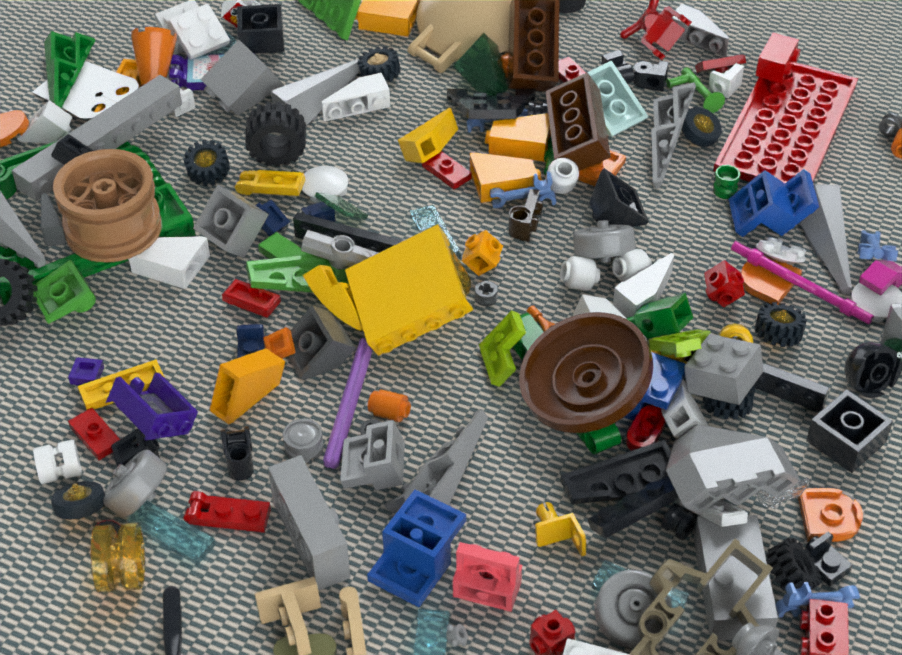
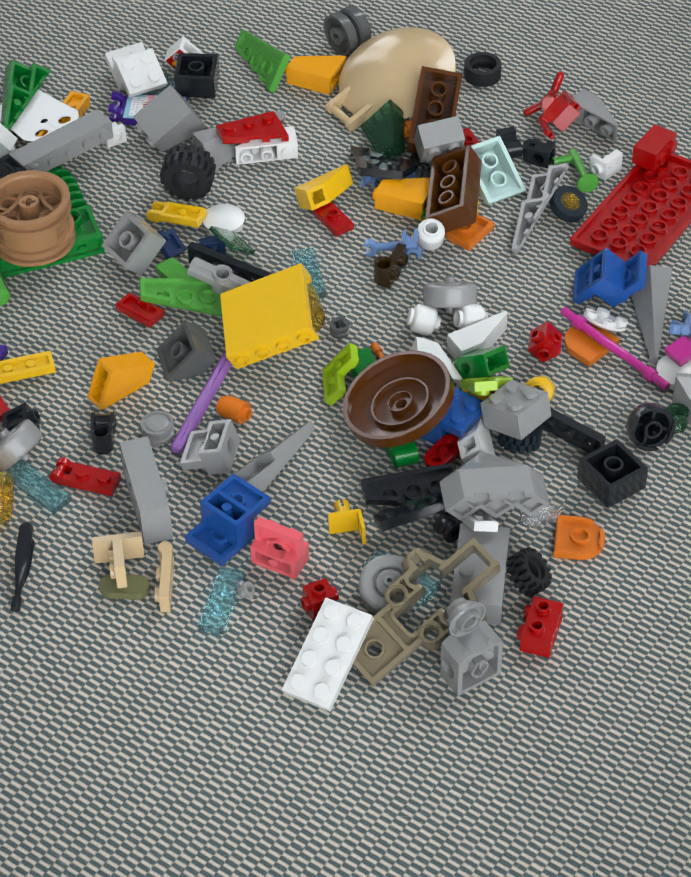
camera: 10 degrees right, 0 degrees up
(153, 52) = (96, 88): orange cone -> none
(155, 412) = (40, 392): dark purple window -> none
(172, 260) = (80, 270): white slope -> none
(206, 163) = (125, 191): black wheel -> none
(250, 339) = (131, 342): dark blue bracket -> none
(280, 343) = (155, 349): orange tile -> none
(334, 295) = (206, 313): yellow slope -> none
(342, 77) = (261, 126): none -> red wing
(380, 61) = (298, 116): black wheel -> none
(482, 252) = (343, 293): light orange brick -> none
(500, 172) = (378, 226): slope -> none
(549, 70) = (438, 138): none -> light grey brick
(616, 202) = (473, 262): black slope -> none
(721, 64) = (605, 148): plate -> none
(726, 181) = (576, 254): green wheel -> none
(780, 324) = (584, 381): black wheel -> none
(802, 595) = (525, 594): medium blue bar -> none
(829, 561) = (563, 572): black bracket -> none

